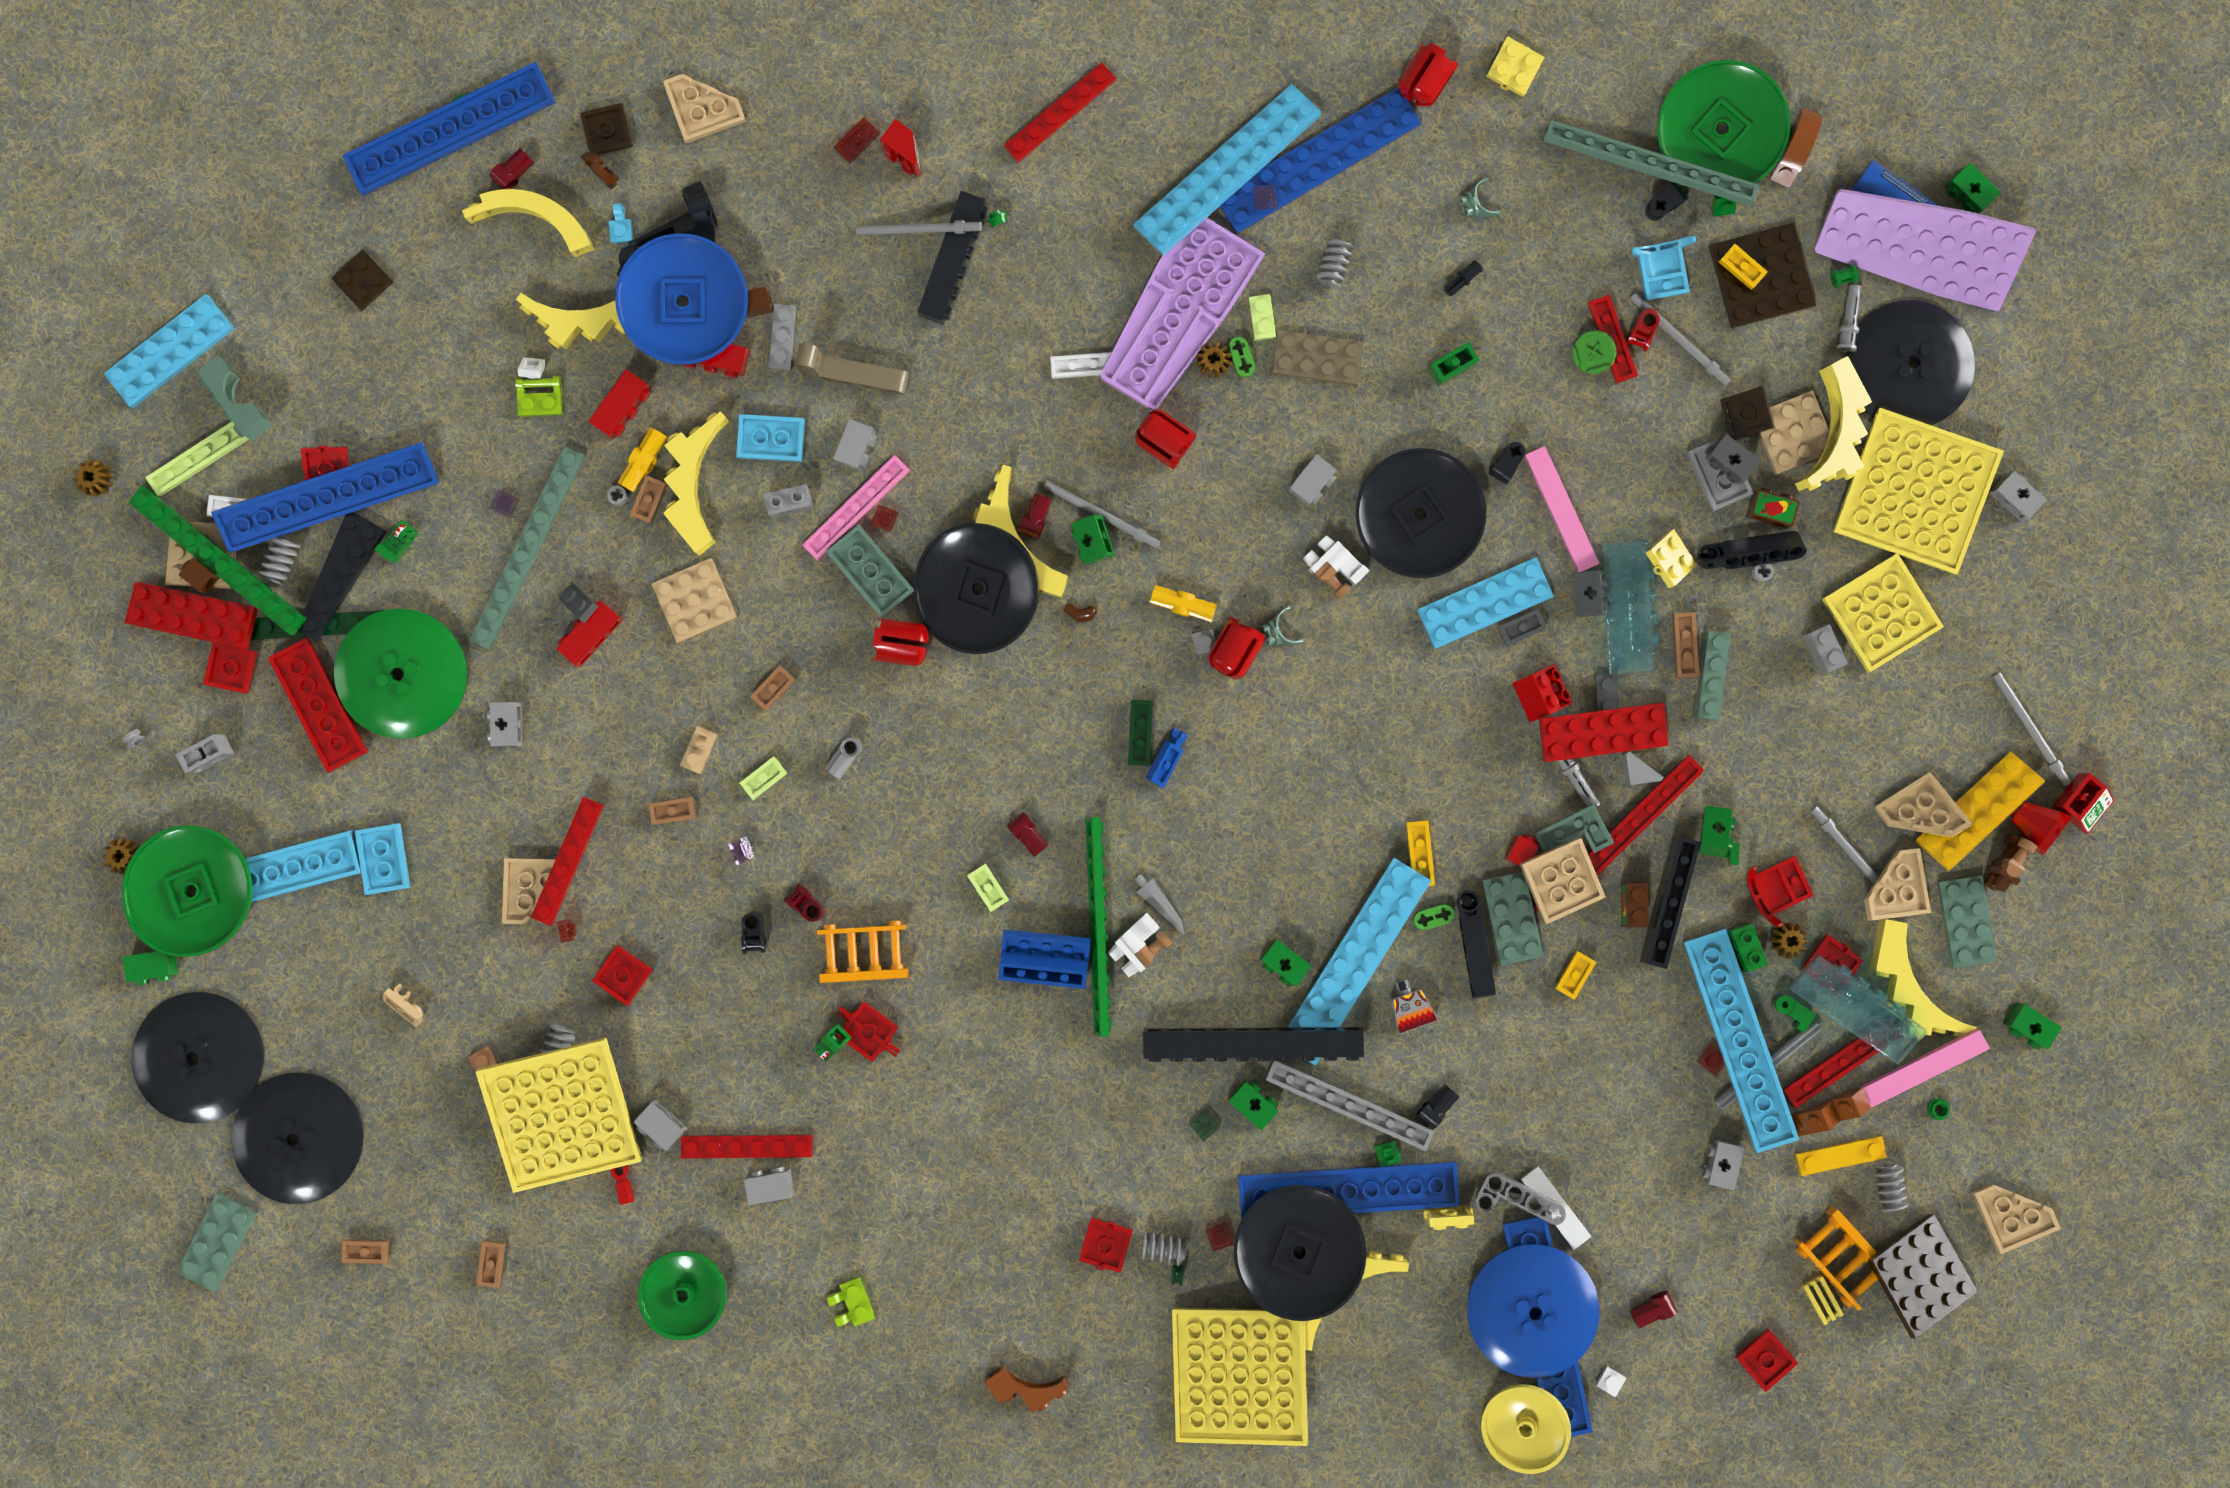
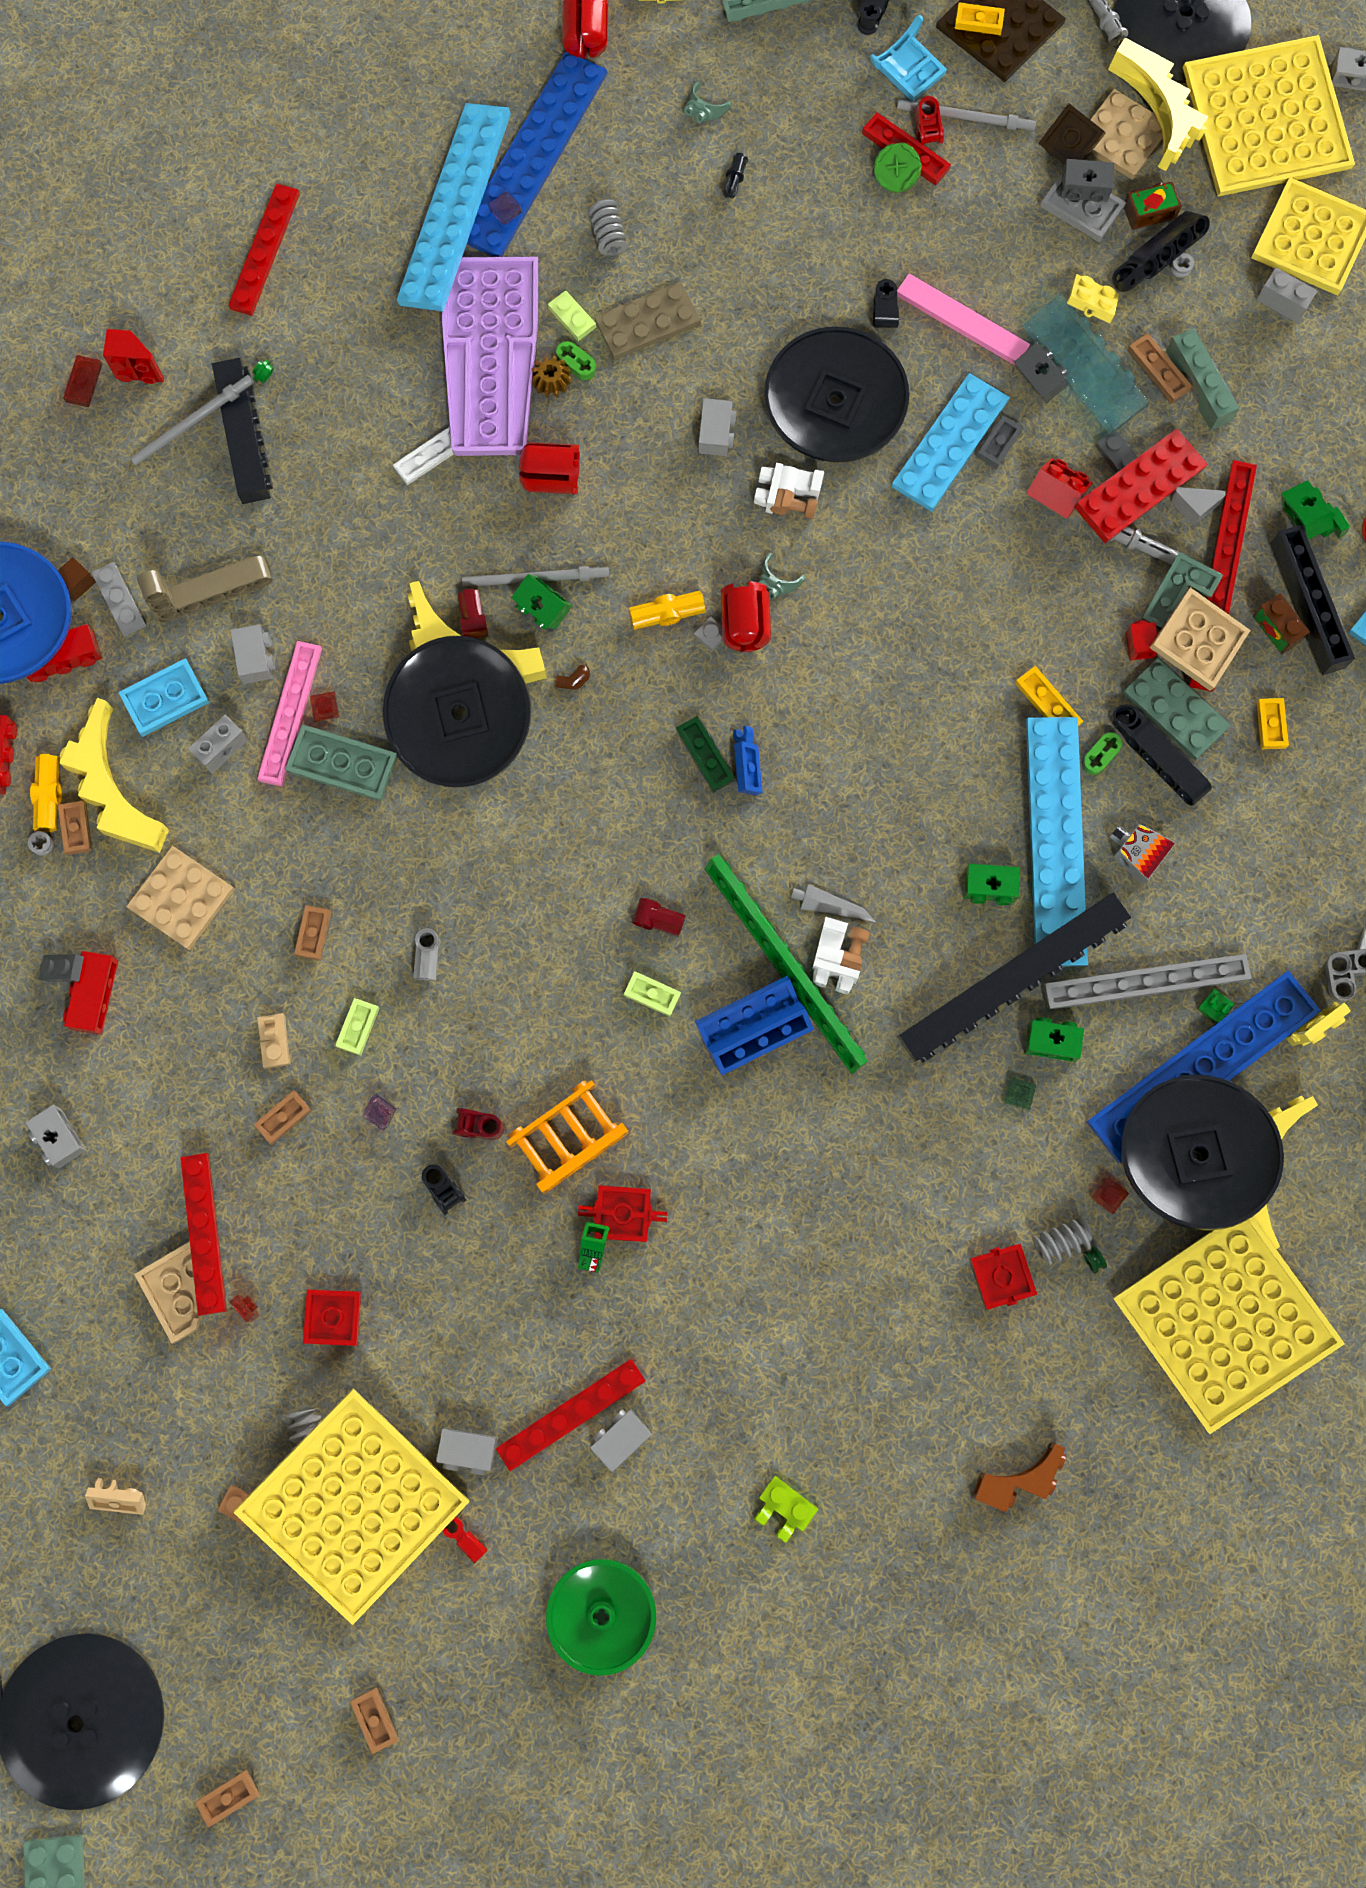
camera: 35 degrees left, 10 degrees down
(903, 632) = (413, 808): red cylinder -> none
(1434, 1111) = (1231, 934): black piece -> none
(1453, 364) = (777, 249): green brick -> none

